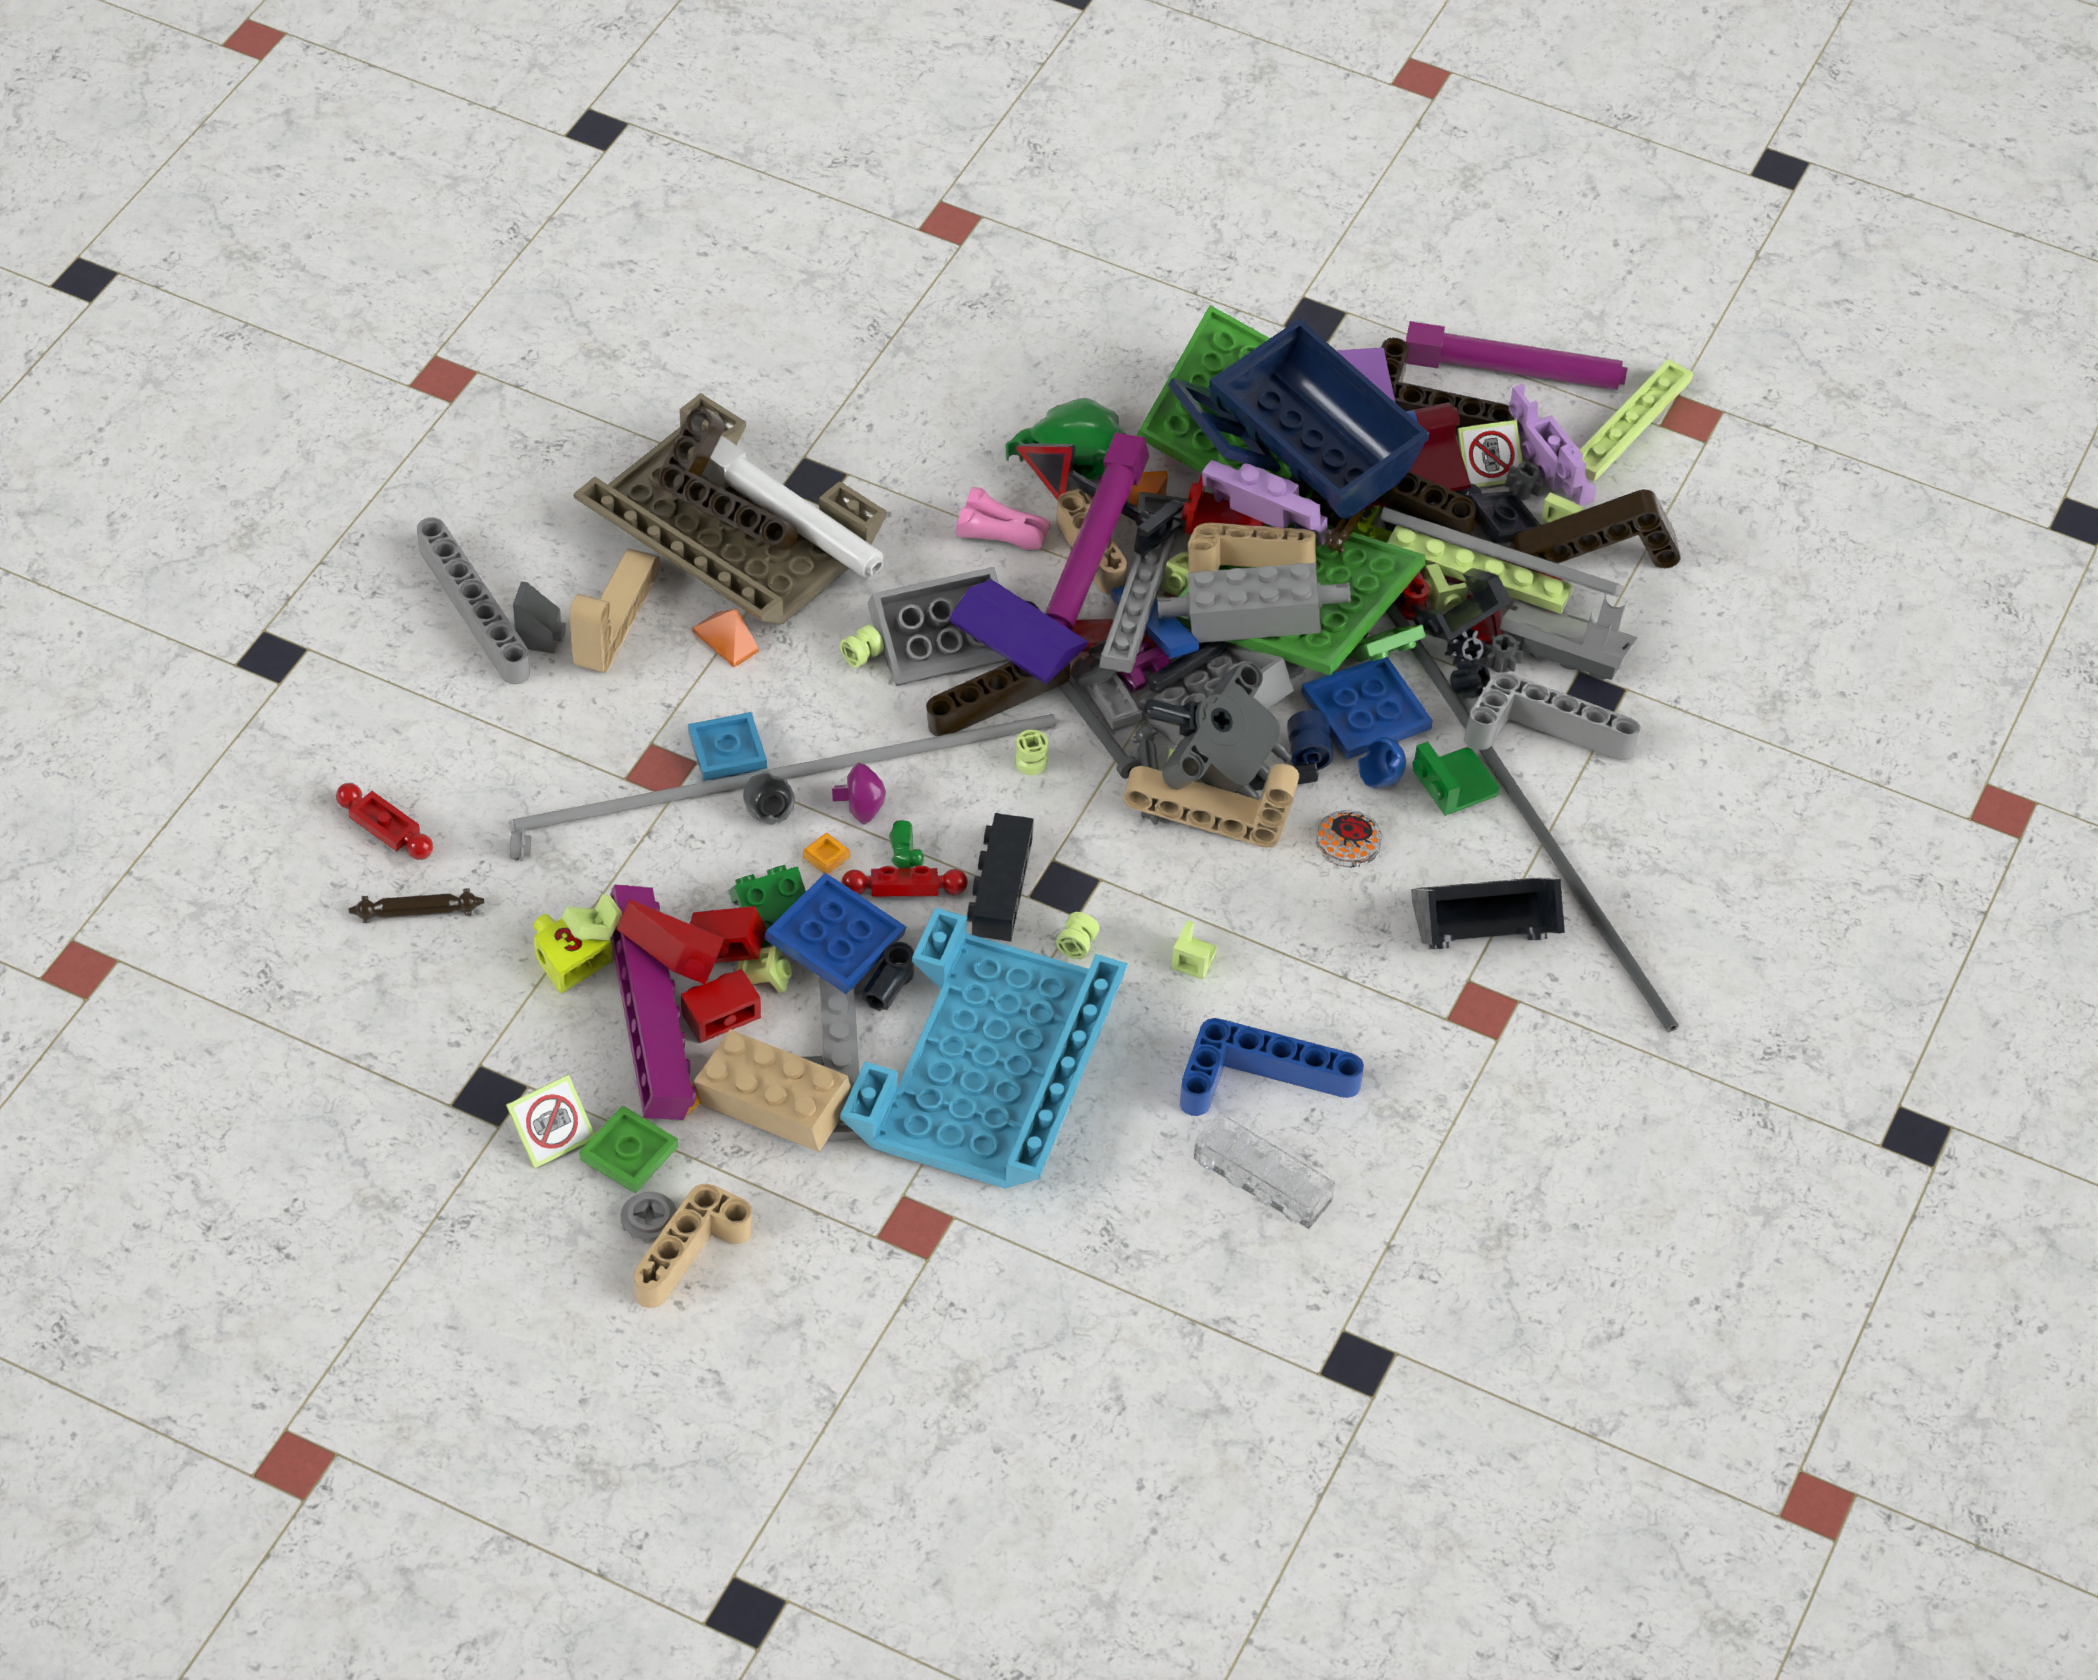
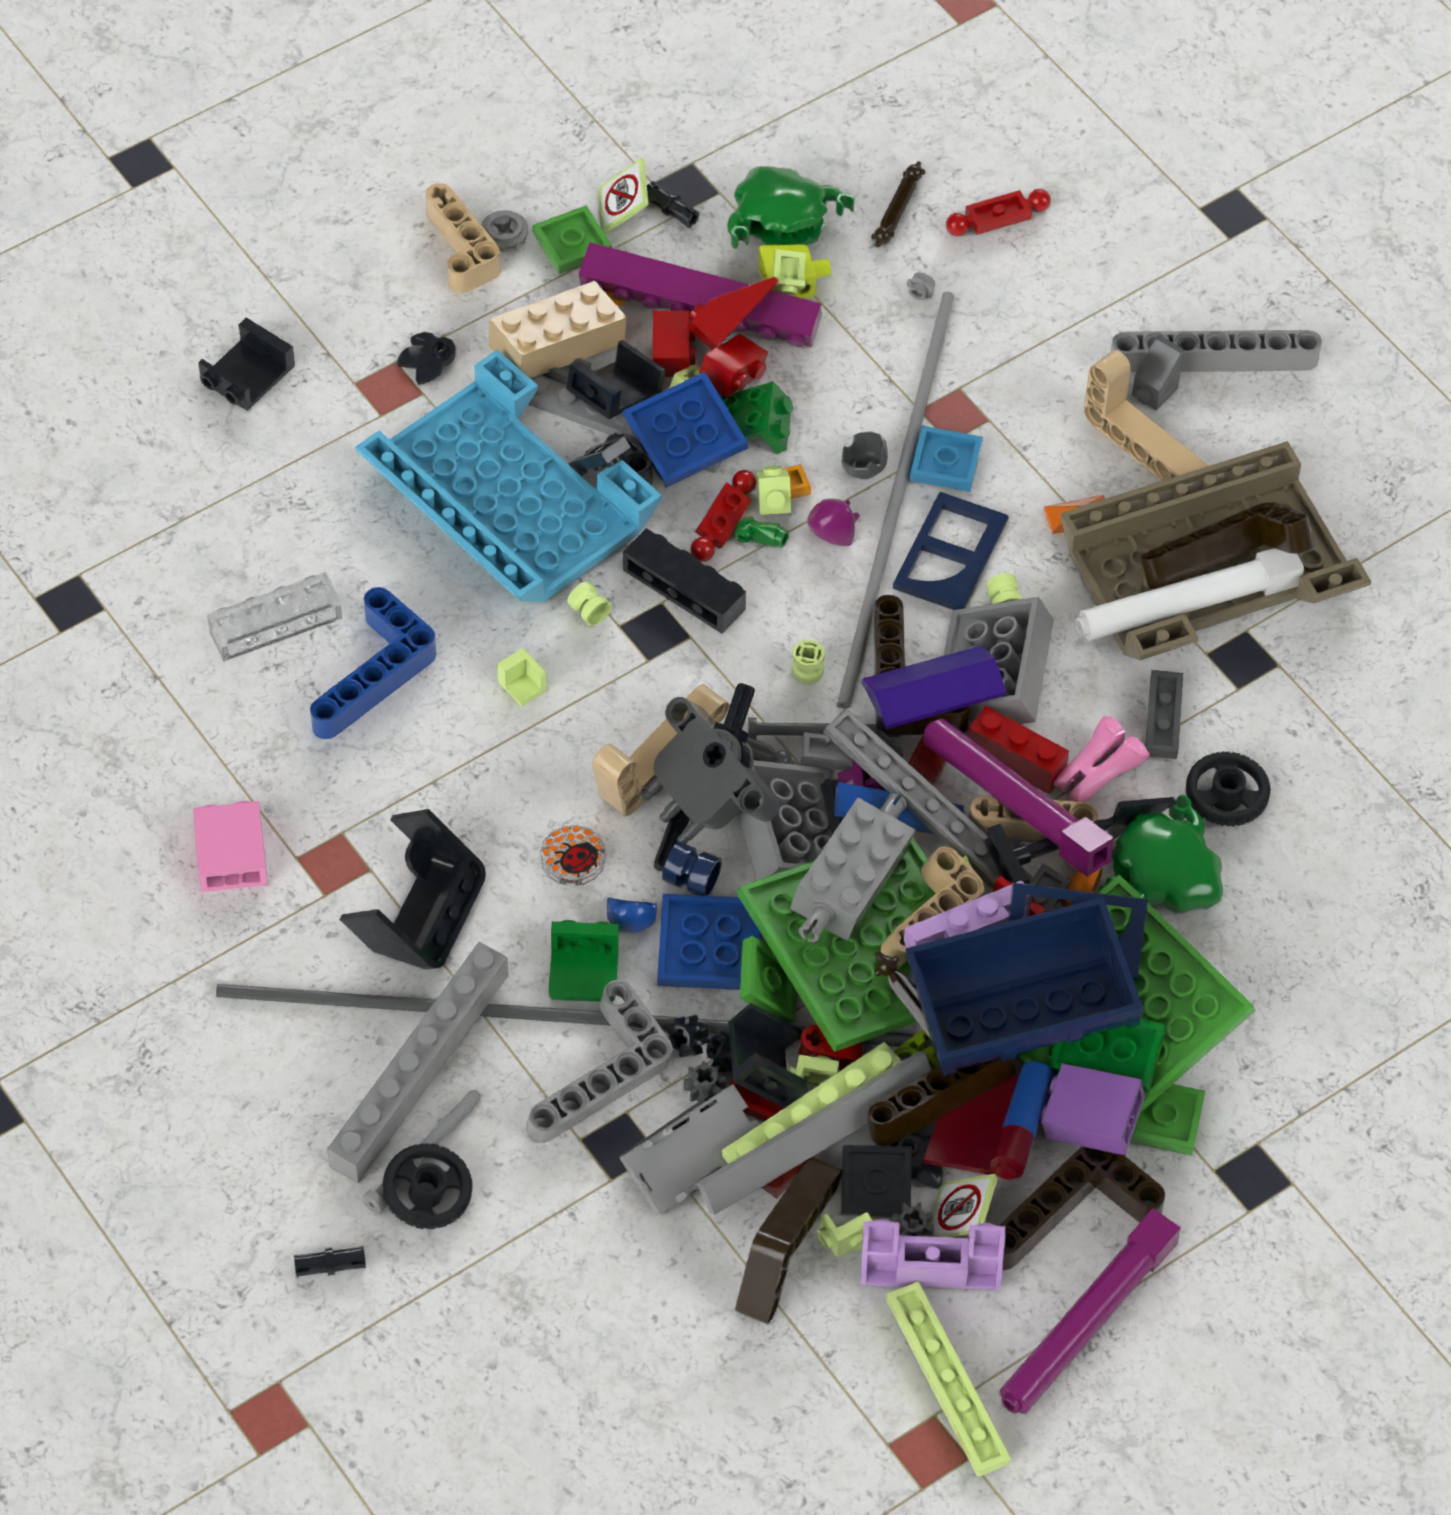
camera: 120 degrees right, 5 degrees up
(490, 980) = (782, 207): none -> green piece
(530, 1079) = (672, 204): none -> black pin
(804, 1022) = (619, 384): none -> black panel
(851, 848) = (774, 490): none -> yellowish green bracket
(861, 1209) = (425, 357): none -> black plate
(873, 691) = (955, 590): none -> dark blue window
(915, 980) = (601, 456): none -> black plate
(921, 500) = (1164, 714): none -> dark grey plate
(967, 444) = (1228, 800): none -> black wheel
(975, 1354) = (249, 366): none -> black panel
(1028, 564) = (1019, 748): none -> red brick
(1533, 1080) = (230, 846): none -> bright pink brick
(1638, 836) = (418, 1062): none -> light grey brick
(1707, 813) = (375, 1199): none -> light grey bar
(1739, 781) = (424, 1200): none -> black wheel
(1865, 839) = (330, 1261): none -> black pin

